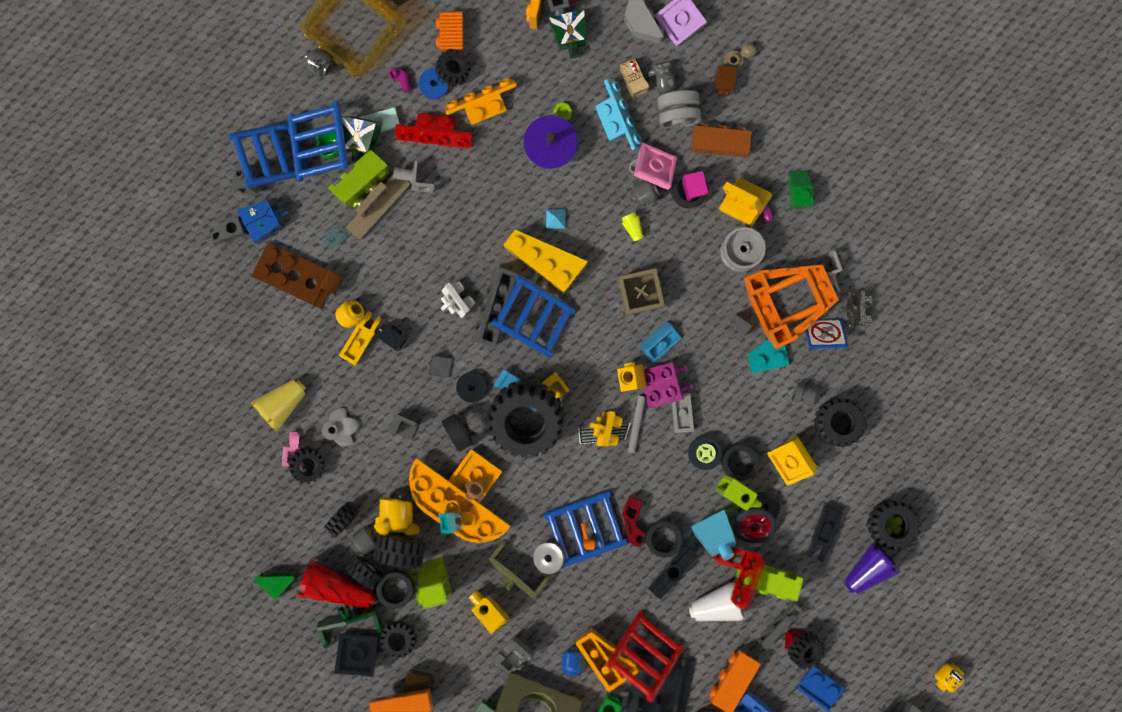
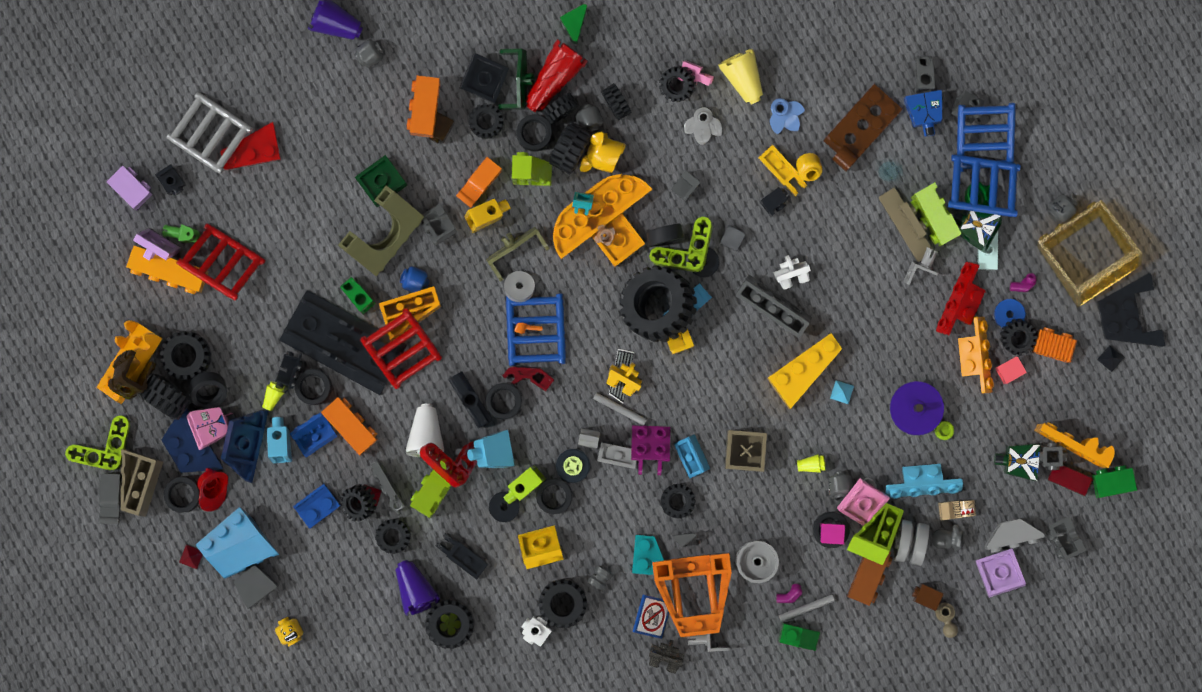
camera: 105 degrees right, 0 degrees up
(309, 349) = (787, 118): none -> medium blue plate
(459, 628) = (479, 182): none -> orange piece
(466, 400) = (692, 254): none -> lime beam
(487, 66) = (1010, 370): none -> coral panel
(552, 301) = (763, 364): blue bar -> none
(625, 380) = (663, 411): yellow brick -> none
(675, 445) = (589, 438): none -> light grey piece
(684, 140) = (877, 535): none -> lime wedge
(713, 332) = (686, 509): none -> black tyre
(744, 201) = (803, 579): yellow bracket -> none
(755, 515) = (479, 491): wheel -> none
(765, 185) = (806, 608): none -> light grey bar
(837, 611) = (381, 536): none -> black tyre
(874, 440) = (539, 637): none -> white brick

